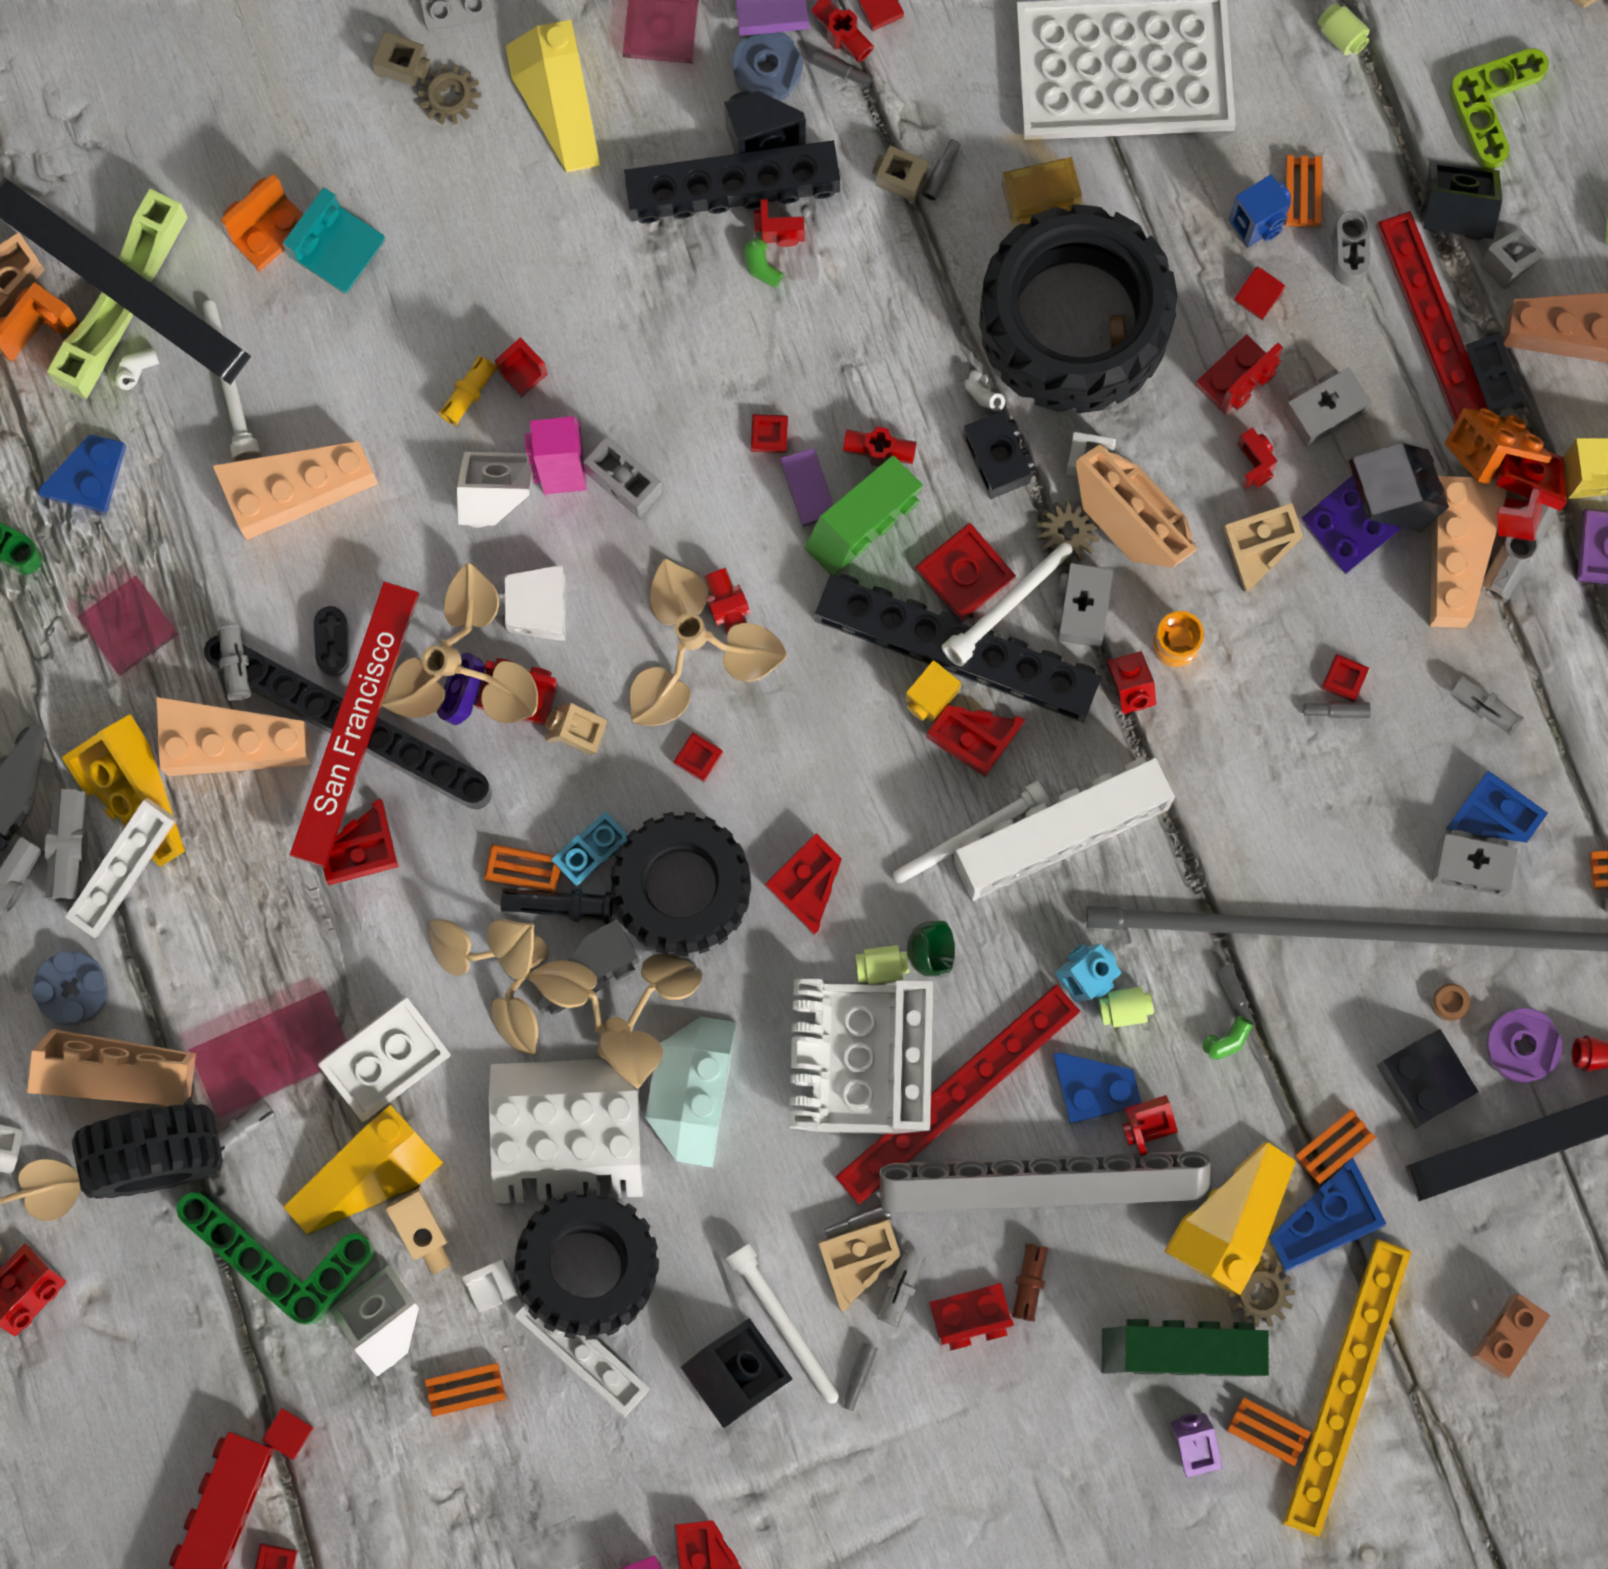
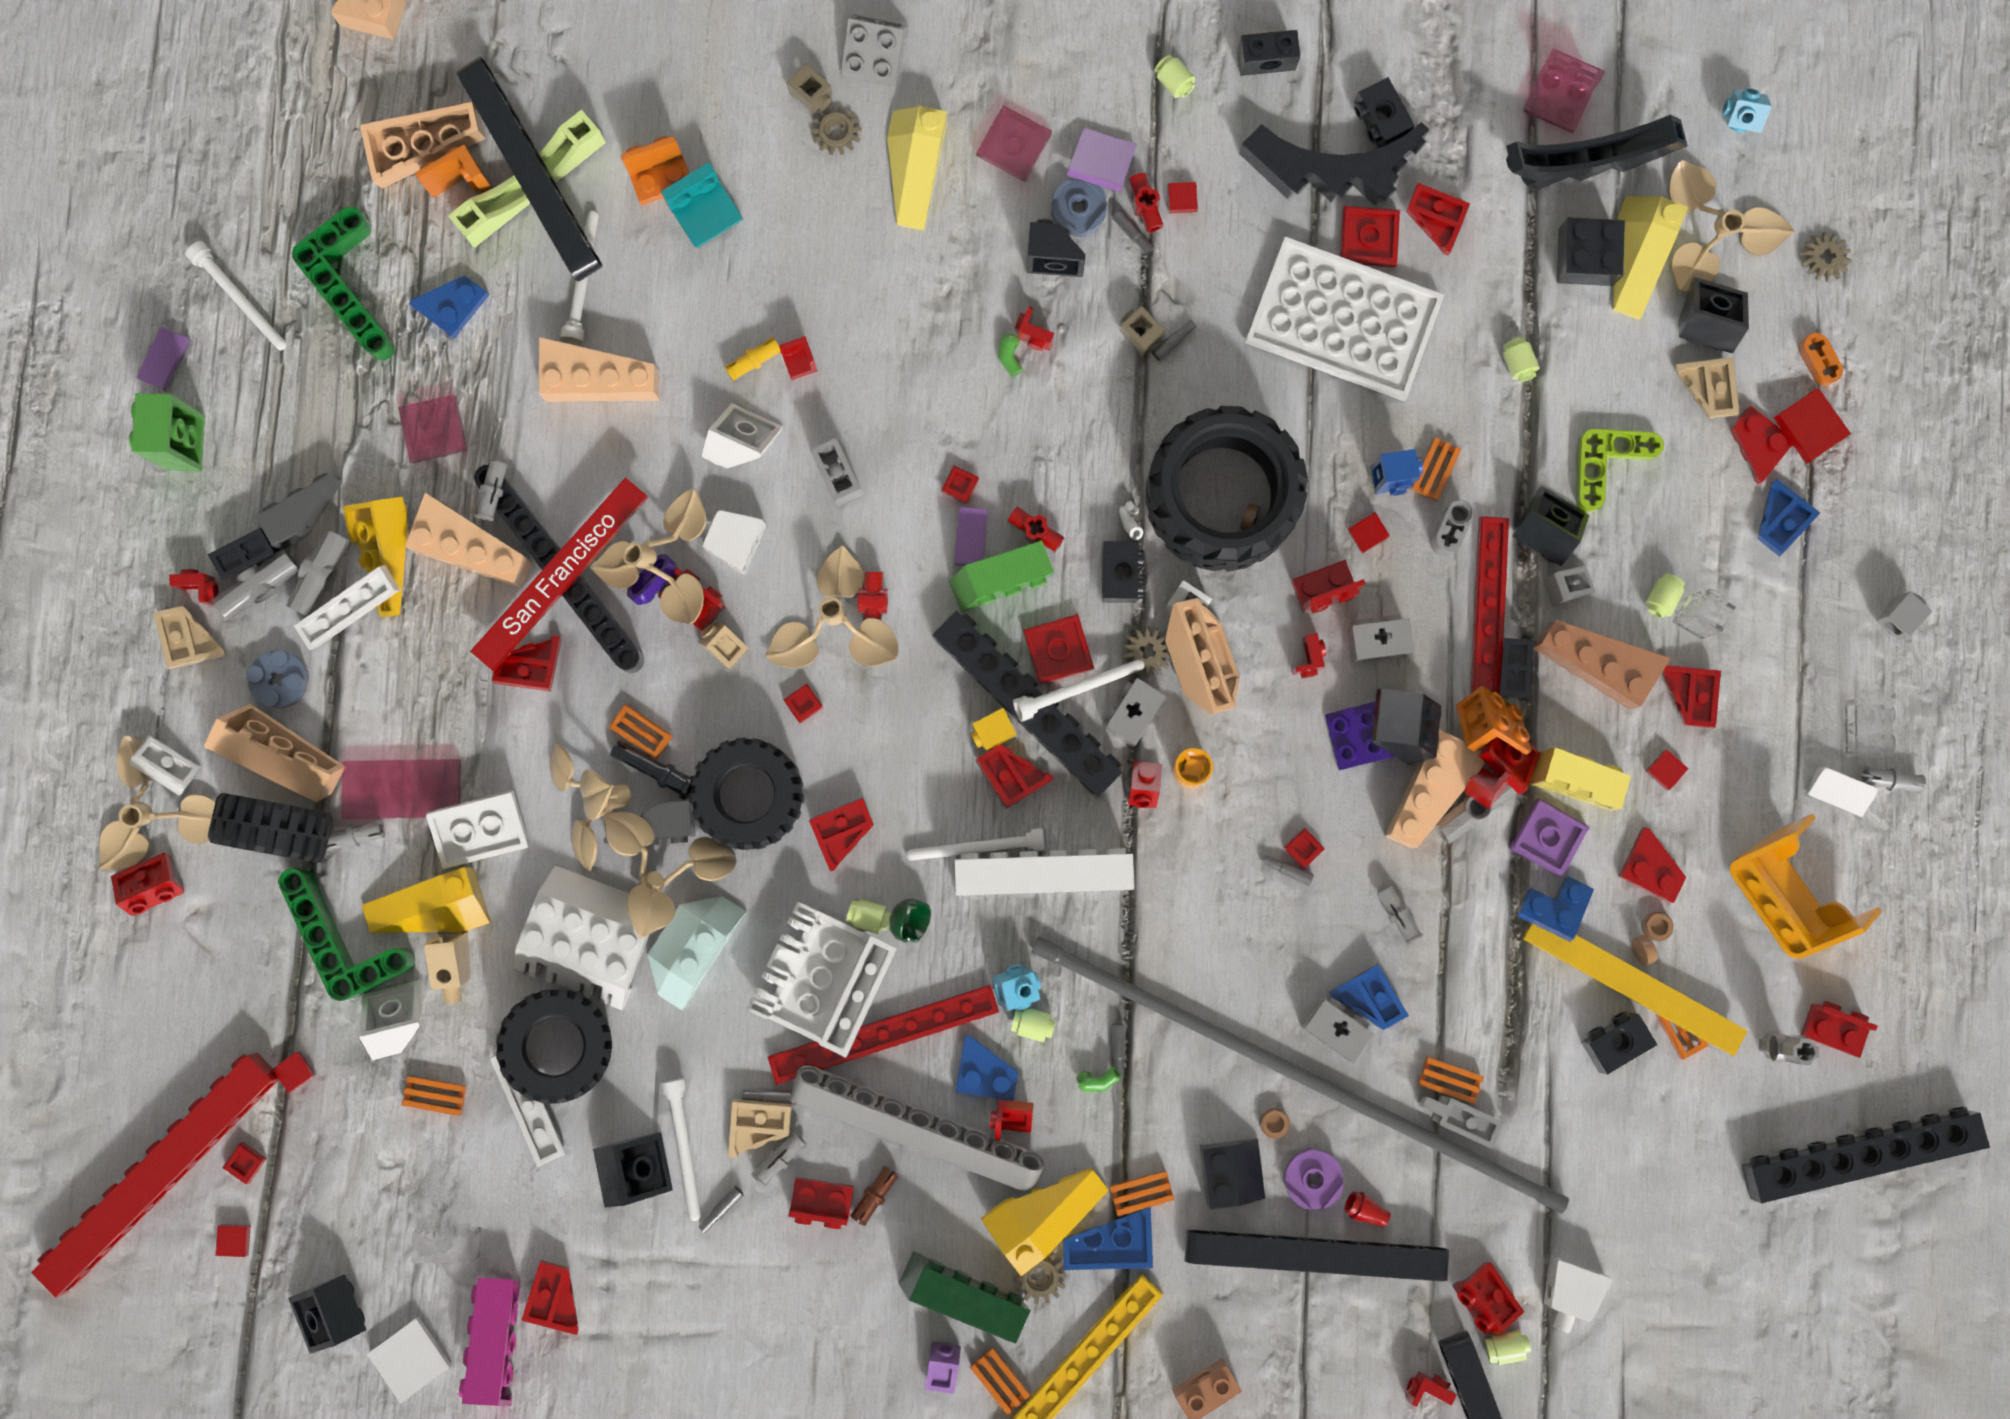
camera: 20 degrees right, 5 degrees up
(132, 366) = (517, 237): white arm -> none
(323, 642) = (568, 501): black beam -> none
(491, 1285) = (483, 1027): white panel -> none
(556, 454) = (792, 434): dark pink wedge -> none
(590, 849) = (694, 738): medium azure slope -> none
(746, 167) = (1004, 271): black brick -> none
(1041, 188) = (1240, 386): clear yellow brick -> none
(1262, 541) = (1286, 720): tan wing -> none

